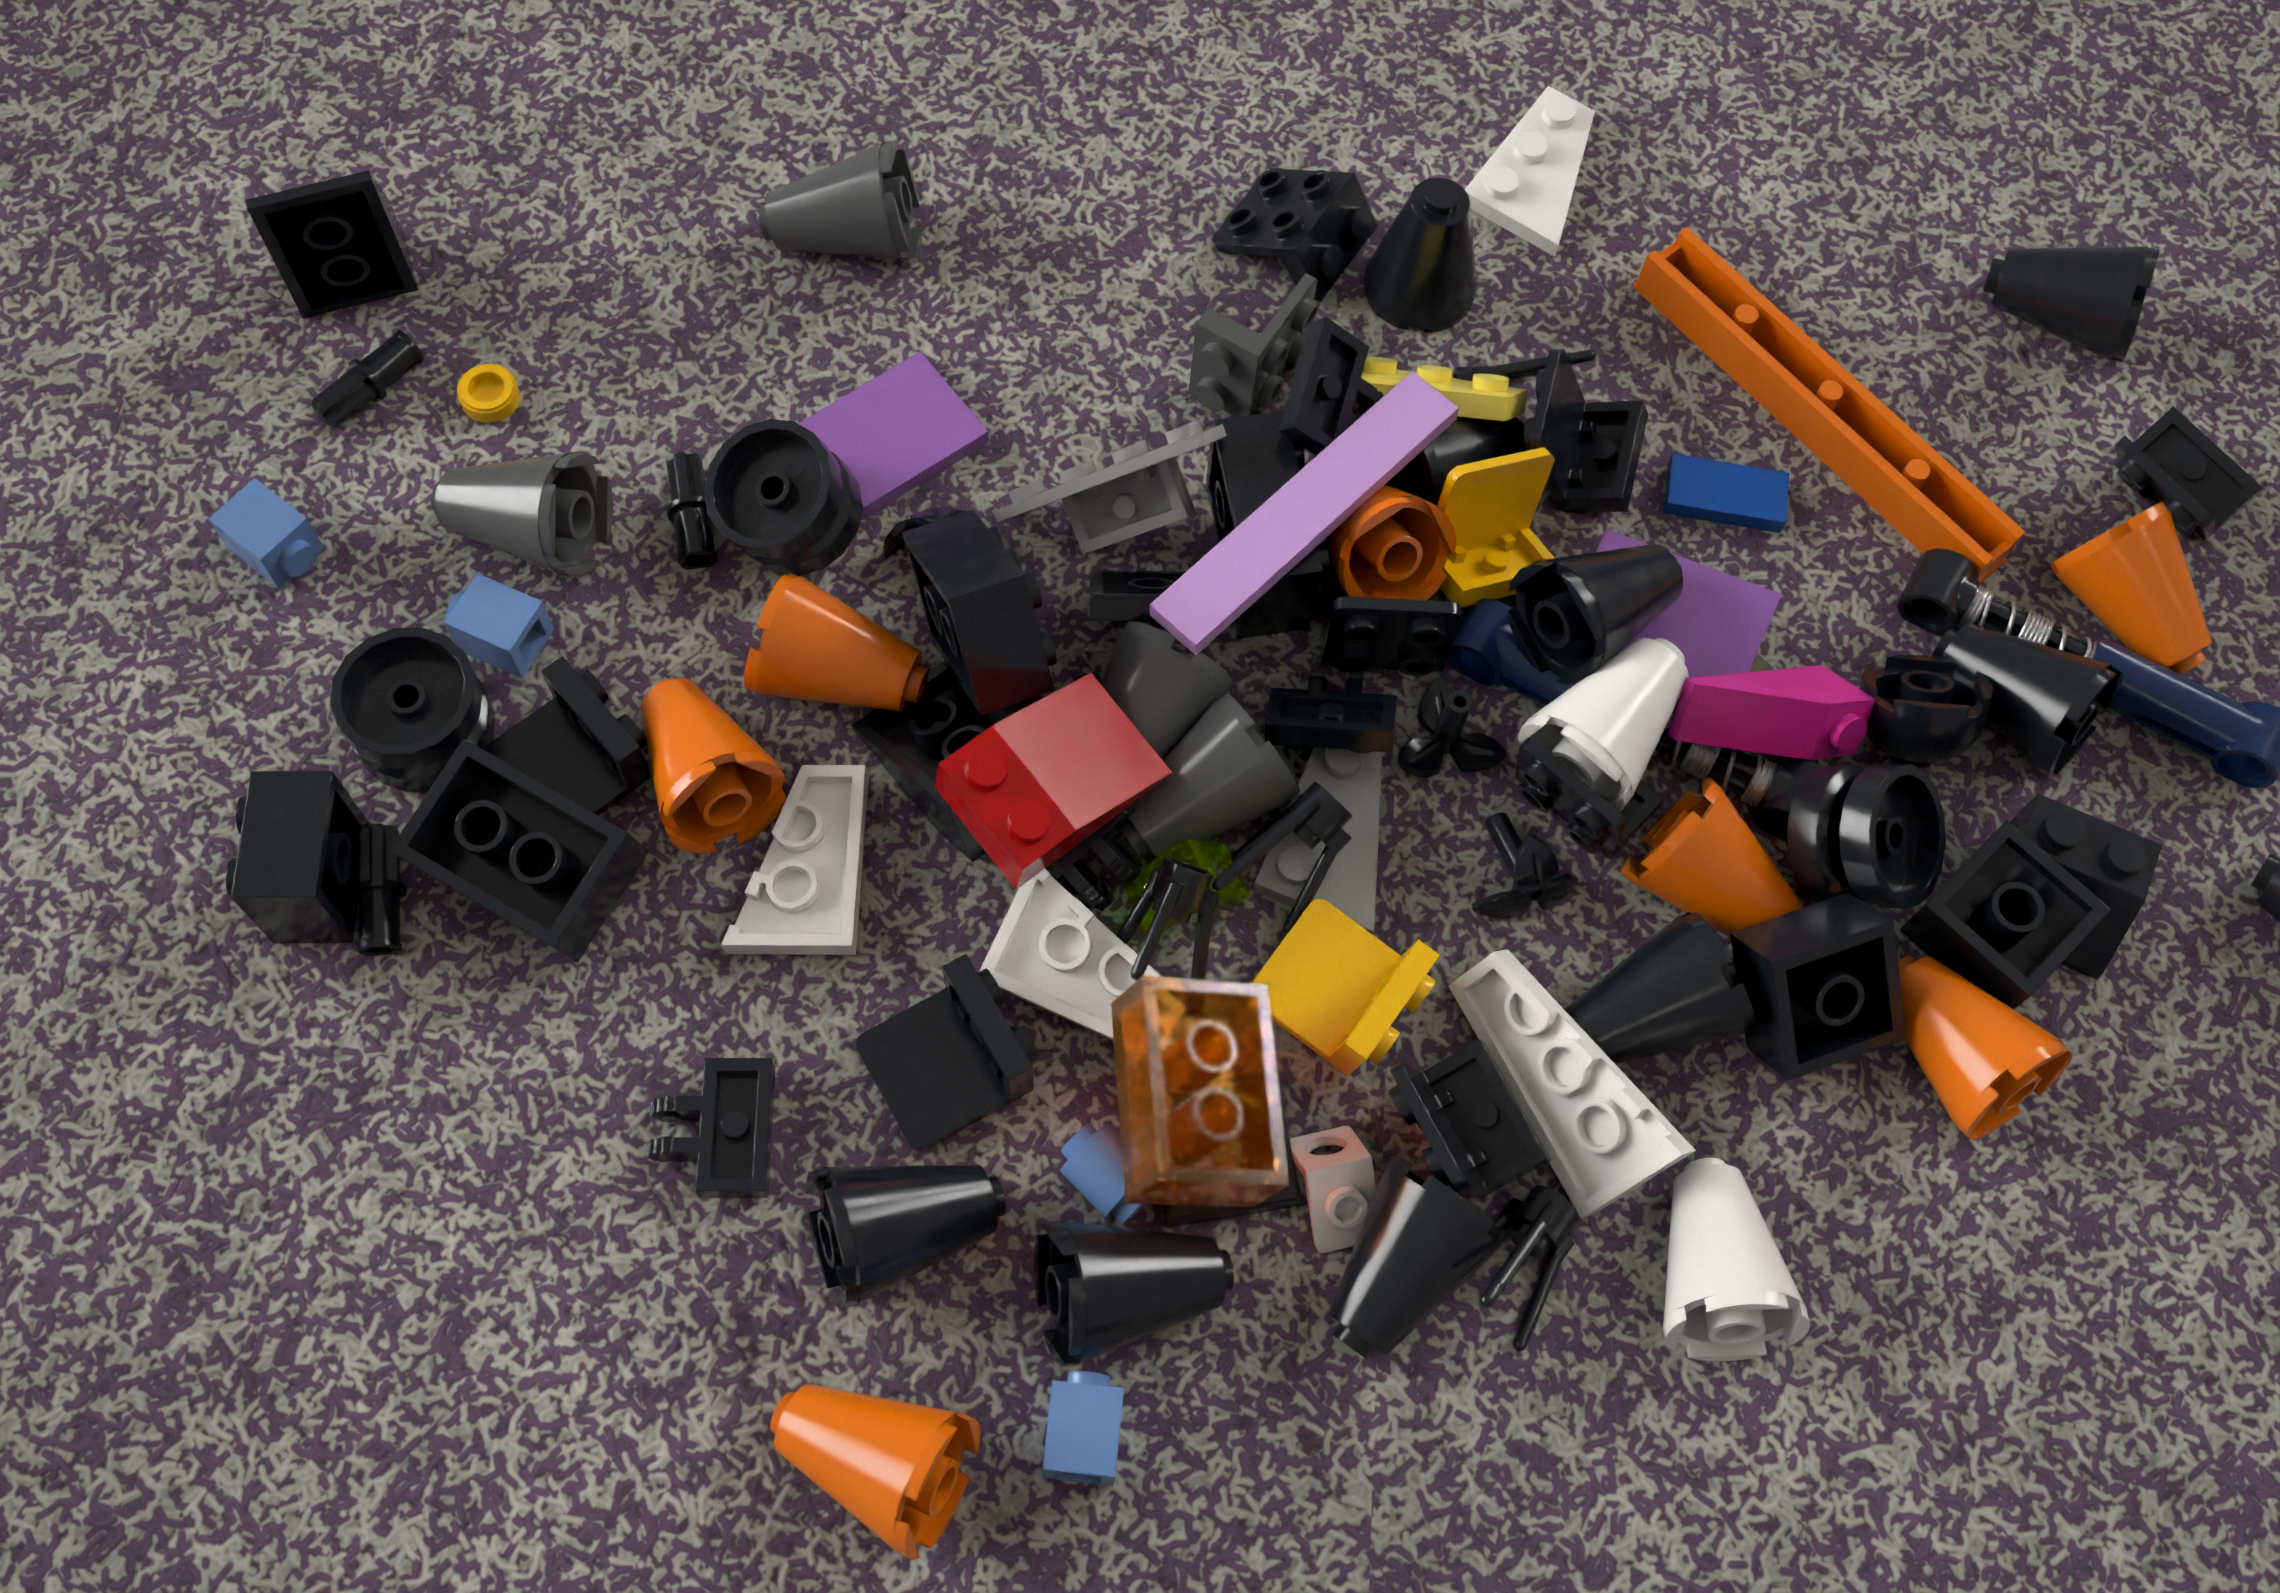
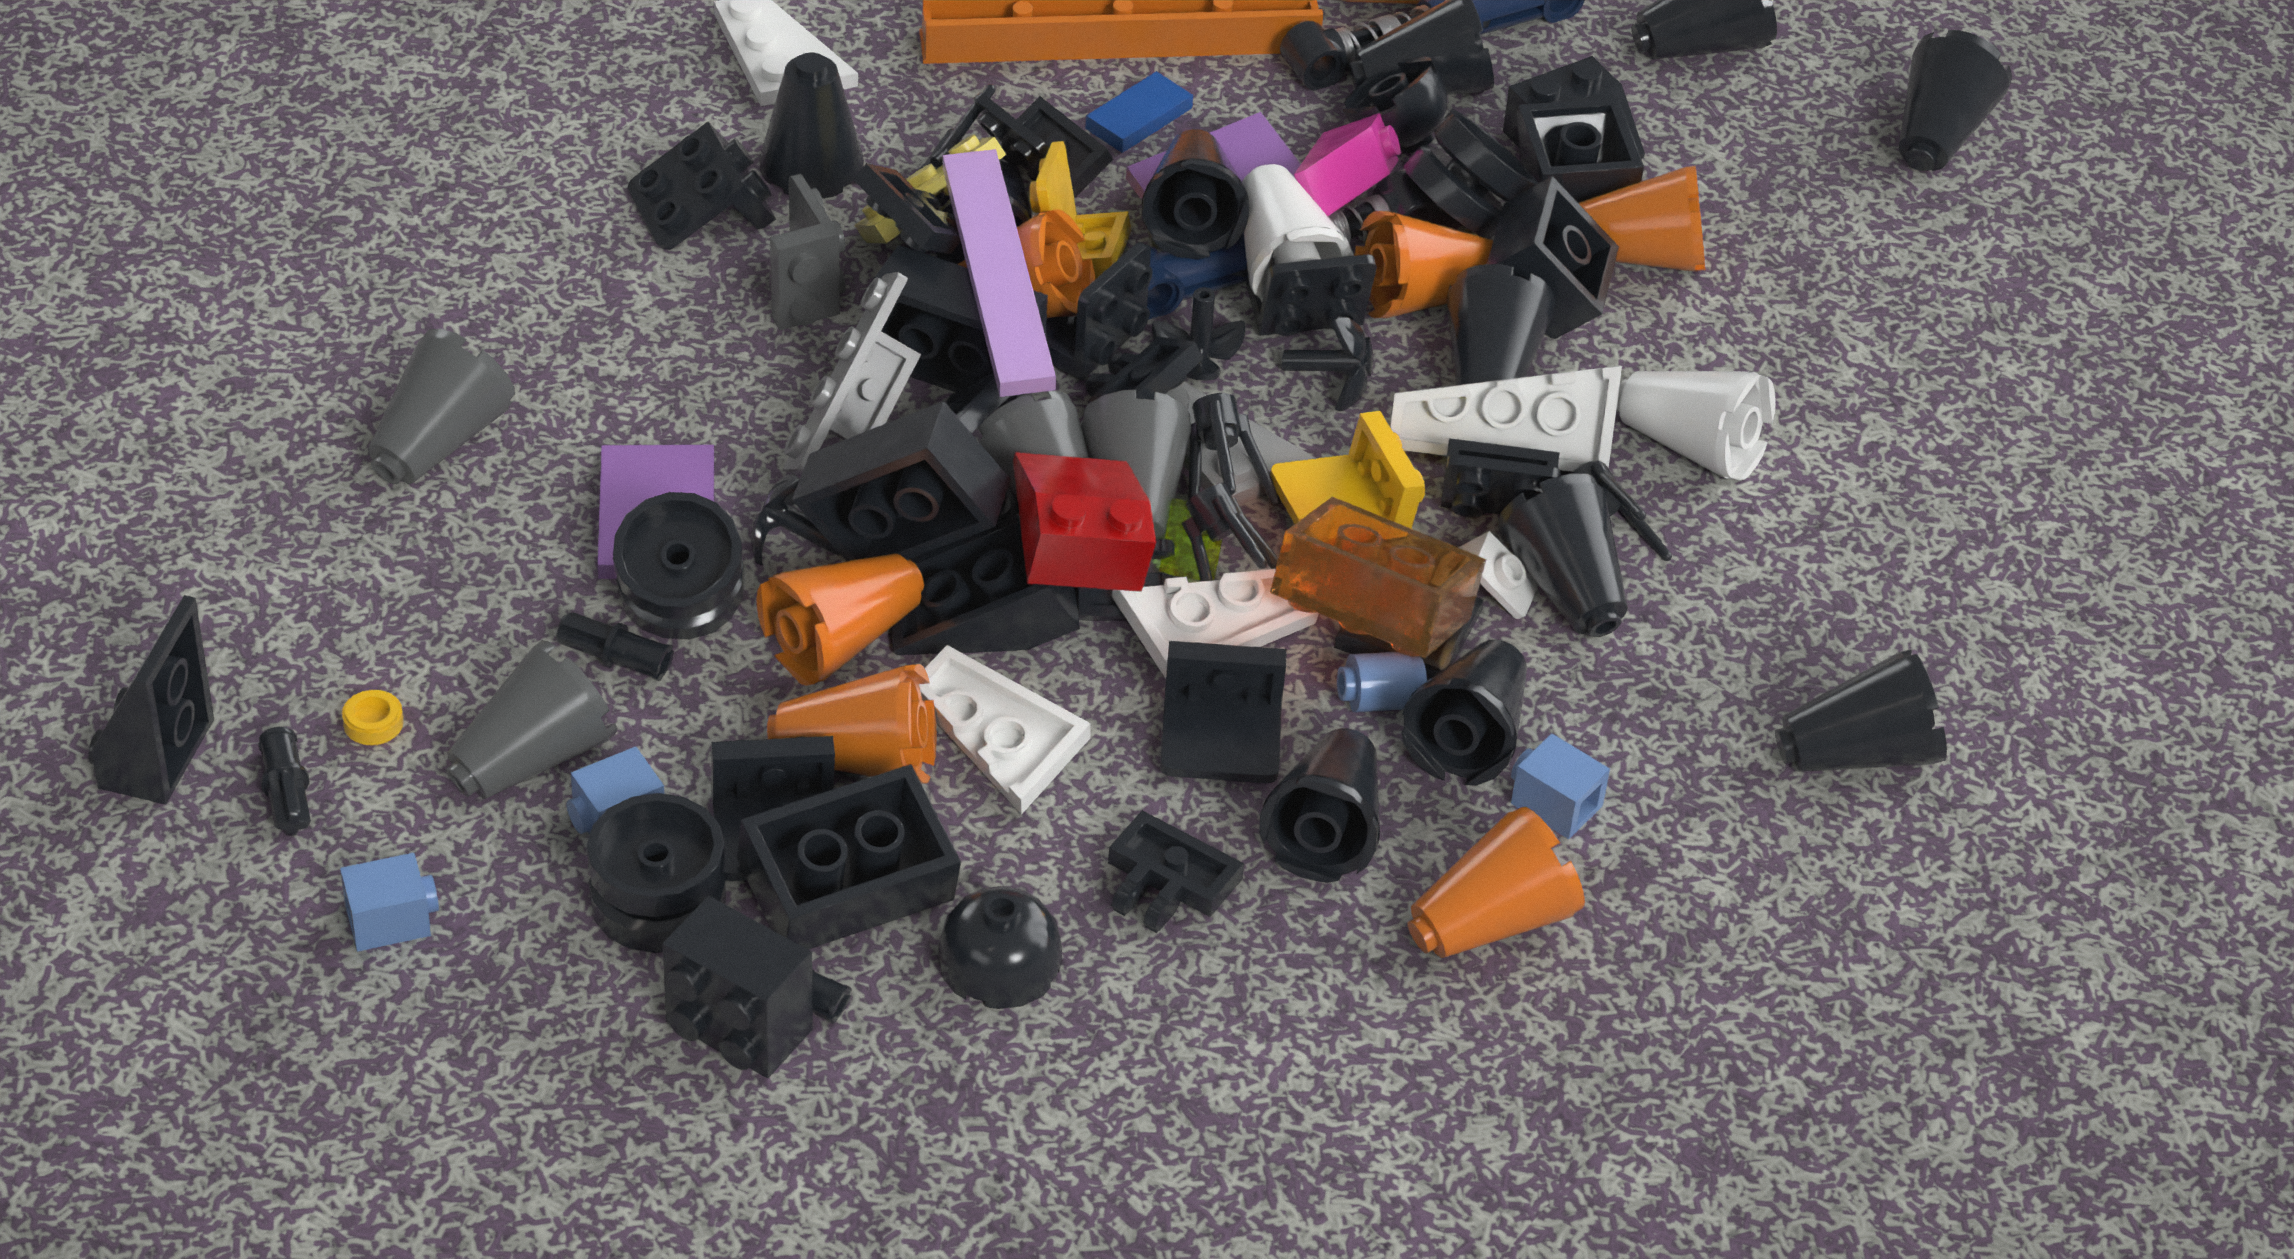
camera: 55 degrees left, 20 degrees down
(529, 1041) = (1000, 947): none -> black cylinder

